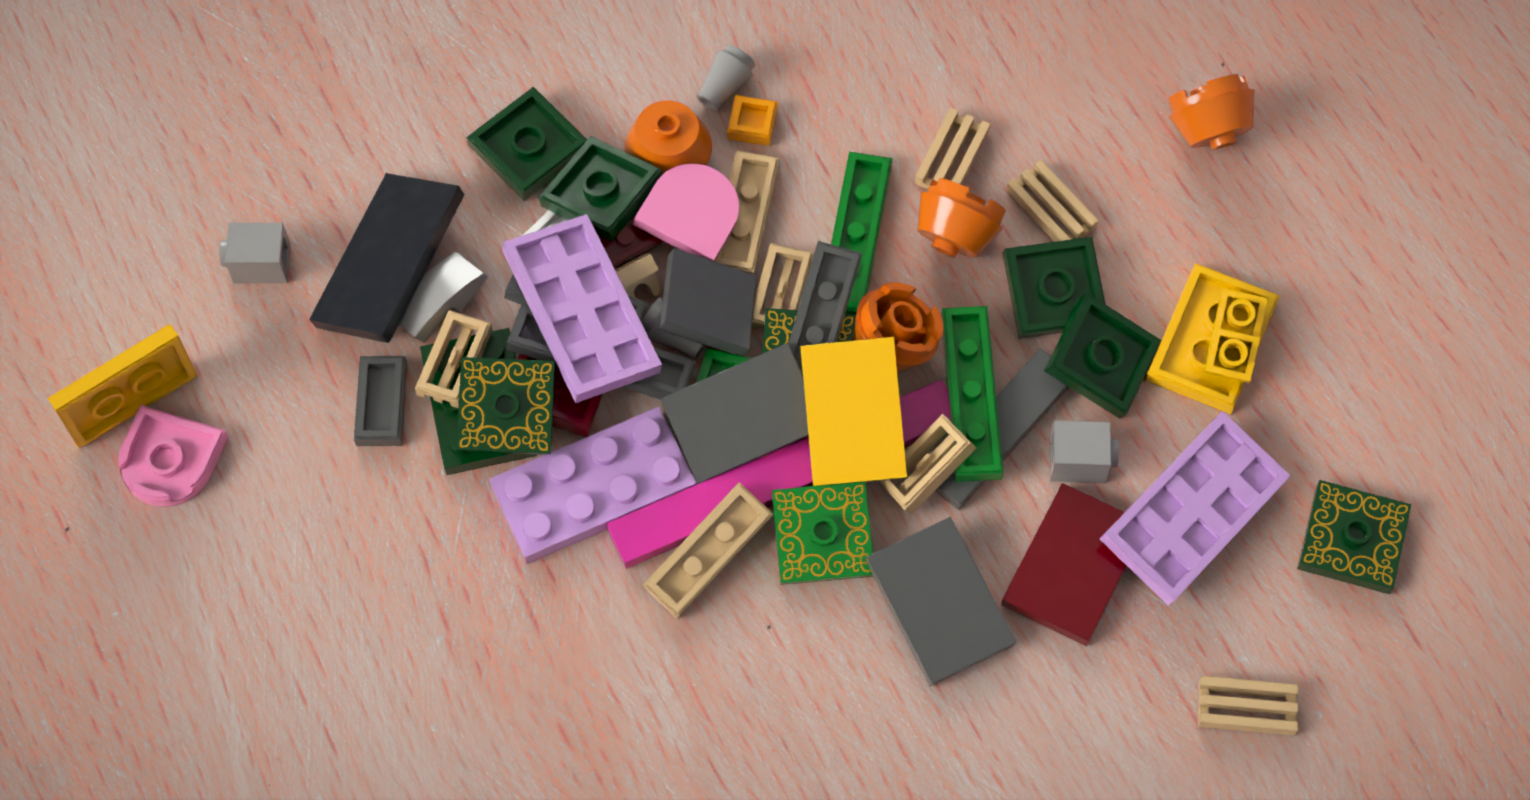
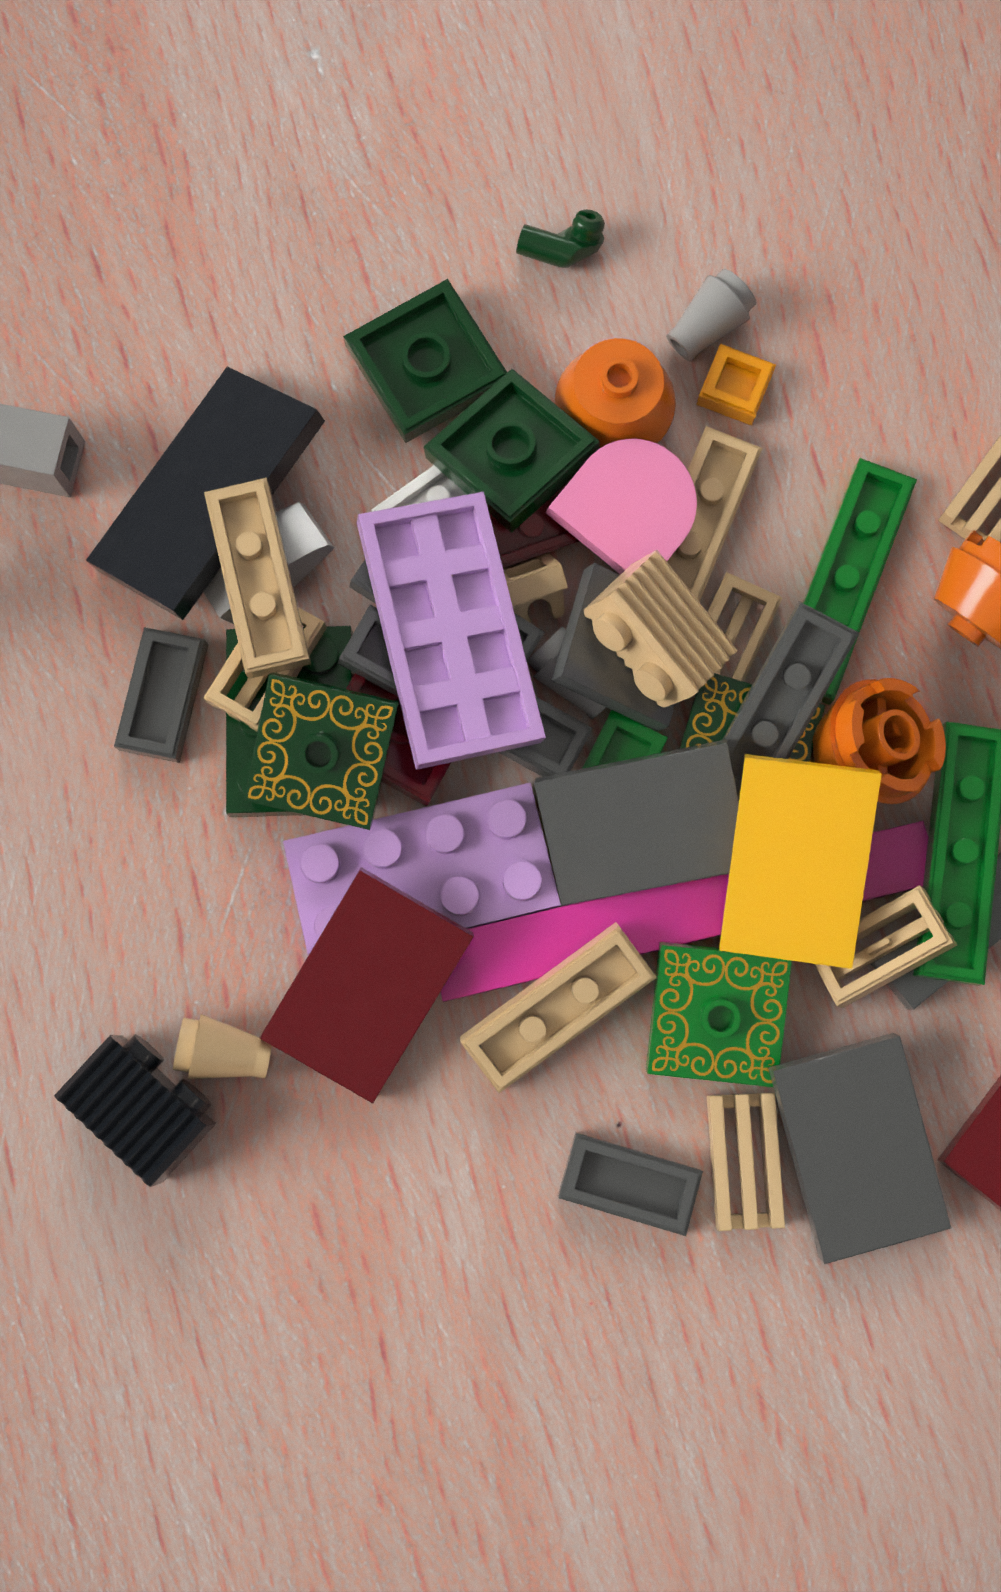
camera: 10 degrees right, 15 degrees up
(420, 674) = (137, 1107): none -> black brick
(439, 301) = (257, 578): none -> tan tile
(471, 626) = (219, 1050): none -> tan cone
(568, 558) = (367, 985): none -> dark red tile
(613, 52) = (566, 247): none -> dark green arm
(727, 282) = (659, 631): none -> tan brick
(784, 661) = (630, 1184): none -> dark grey tile
(853, 593) = (770, 1156): none -> tan tile

